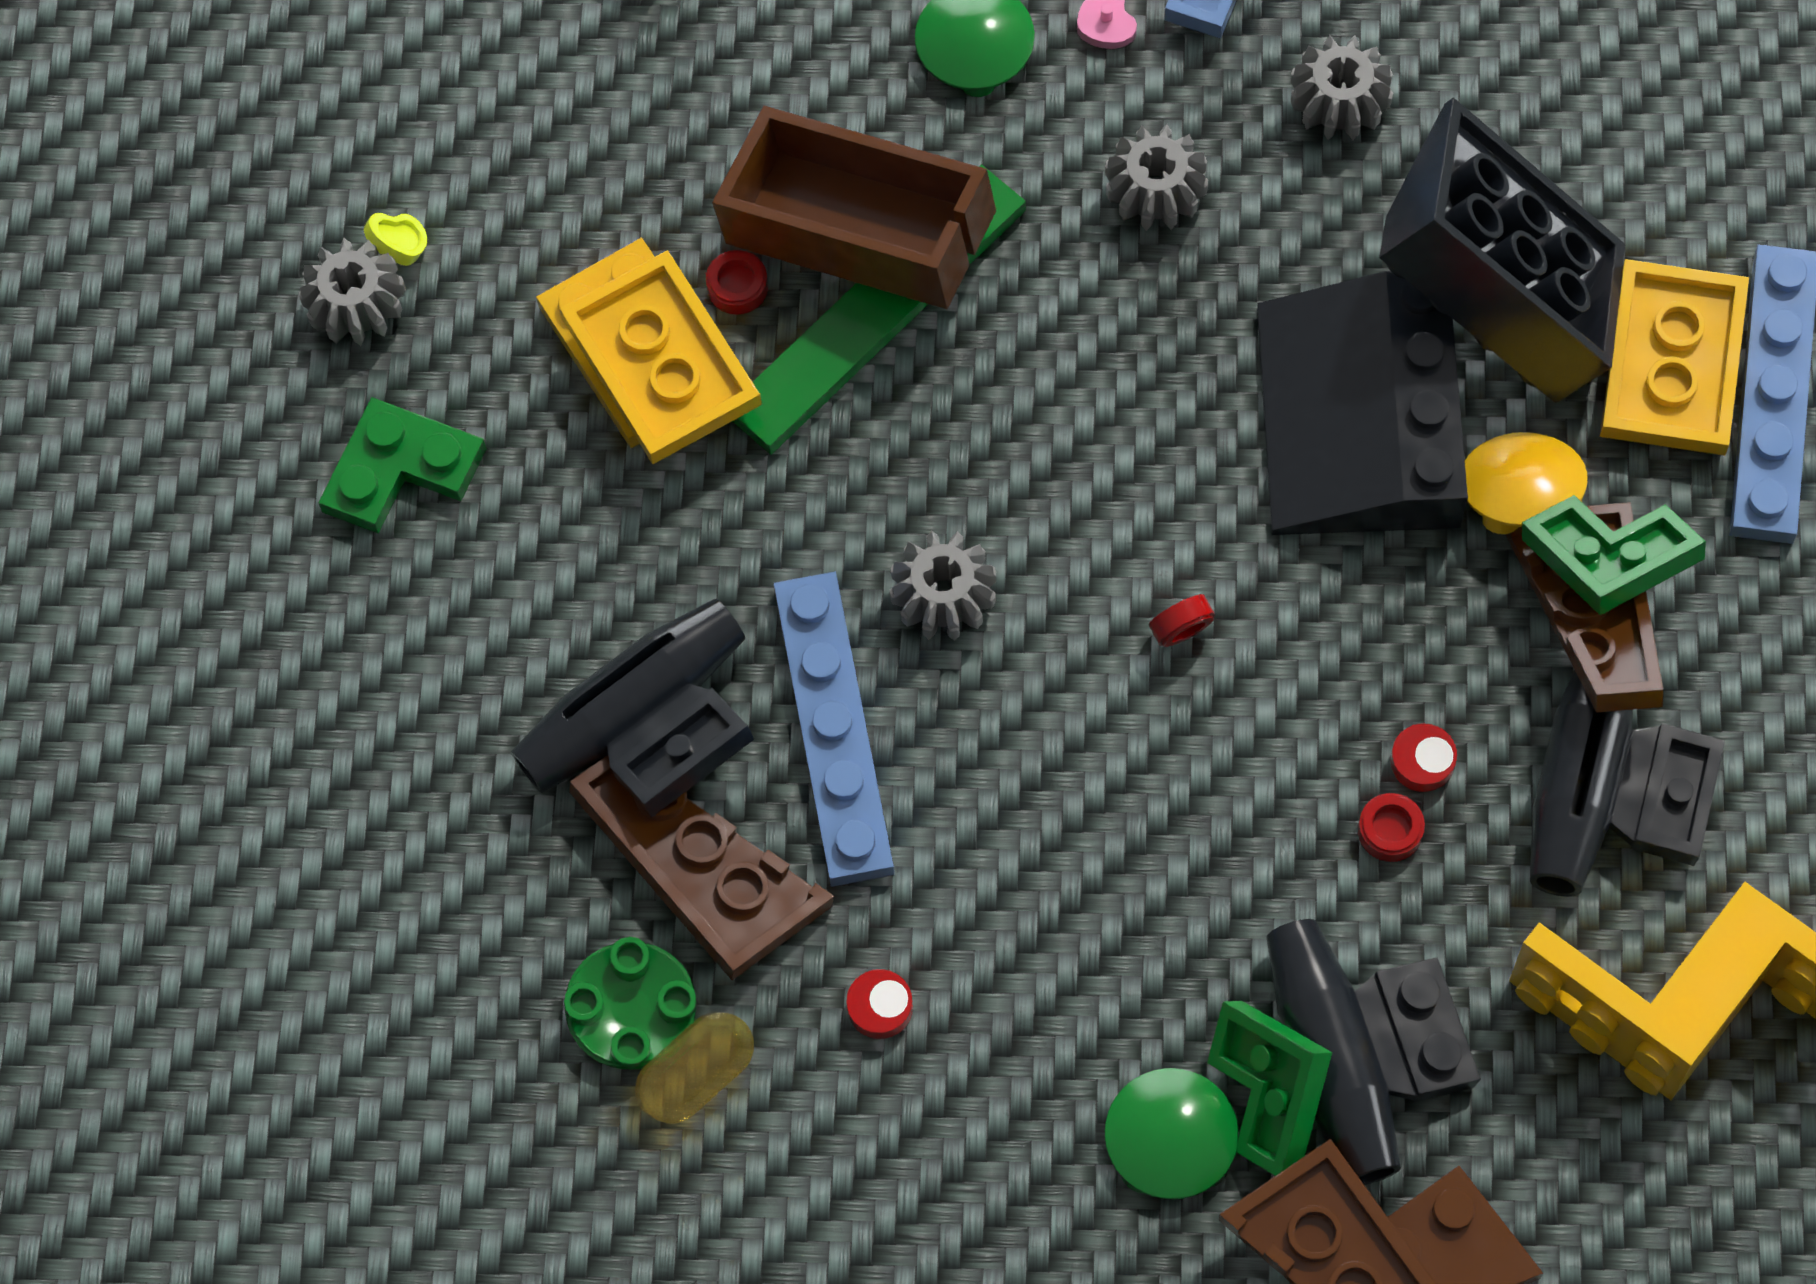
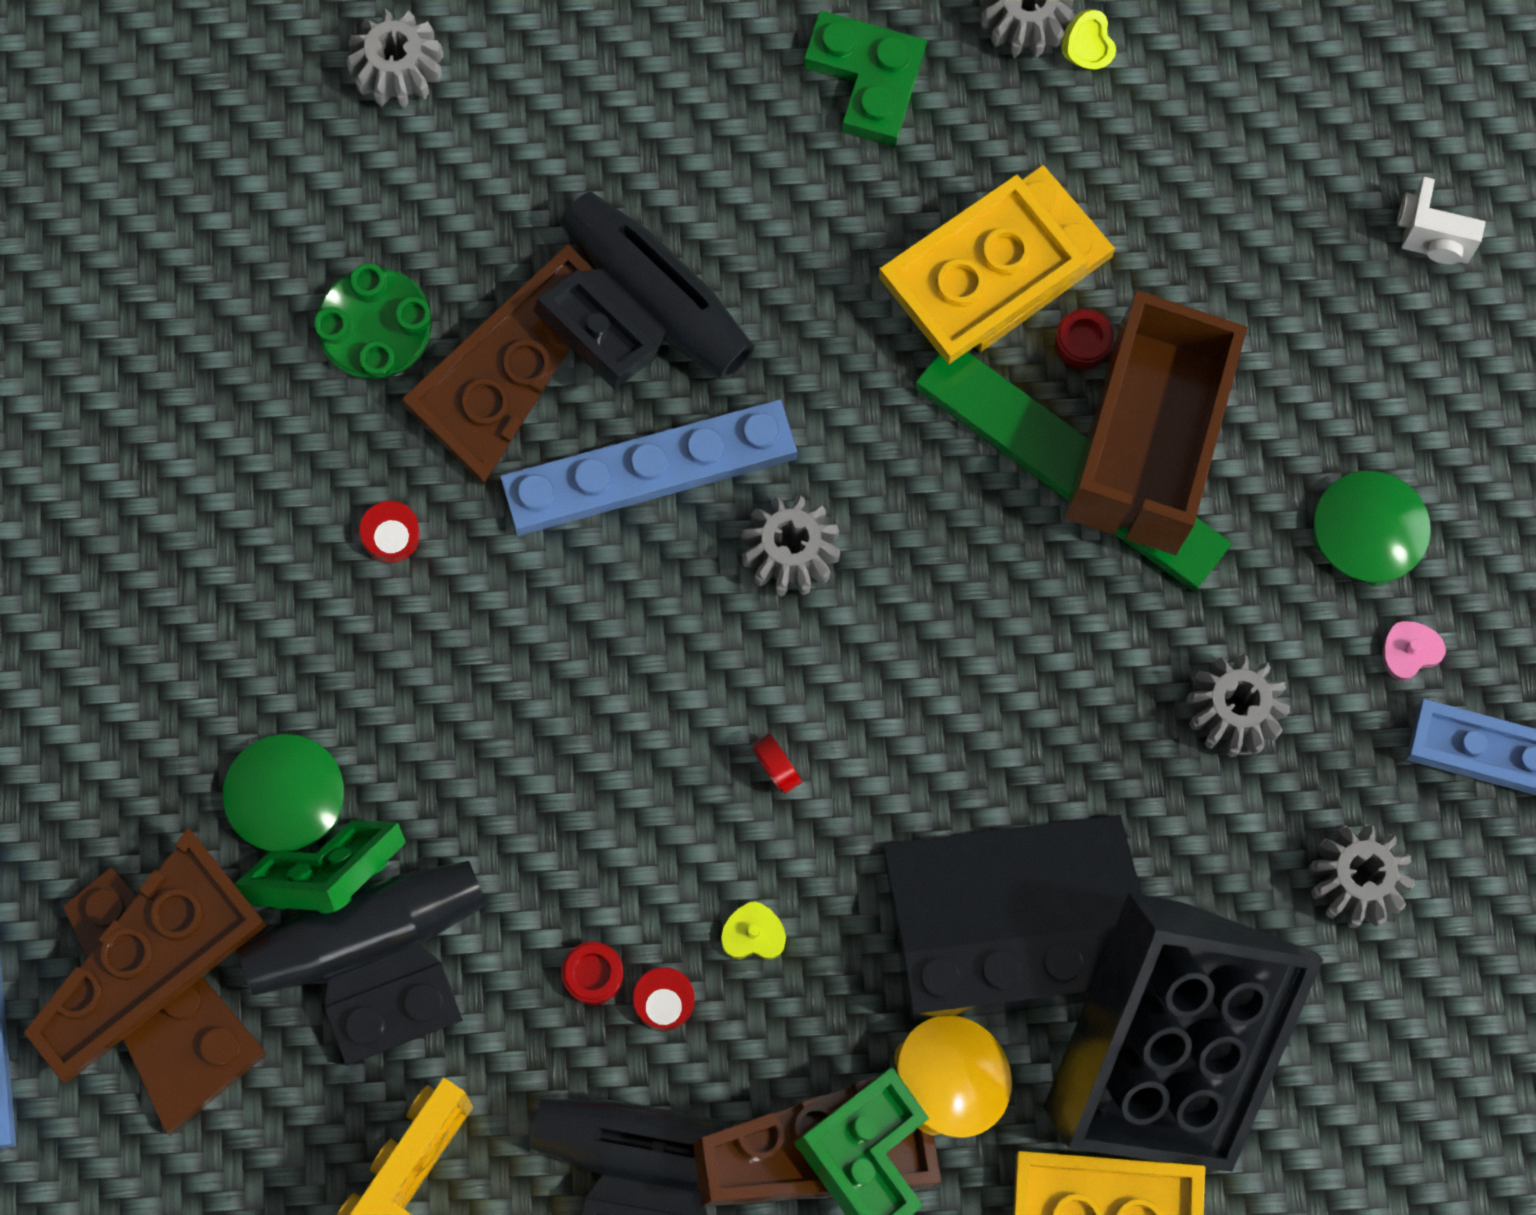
camera: 75 degrees right, 5 degrees up
(292, 976) = (398, 40): none -> light grey gear
(694, 1067) = (319, 381): clear yellow tile -> none
(1355, 665) = (753, 931): none -> neon yellow piece

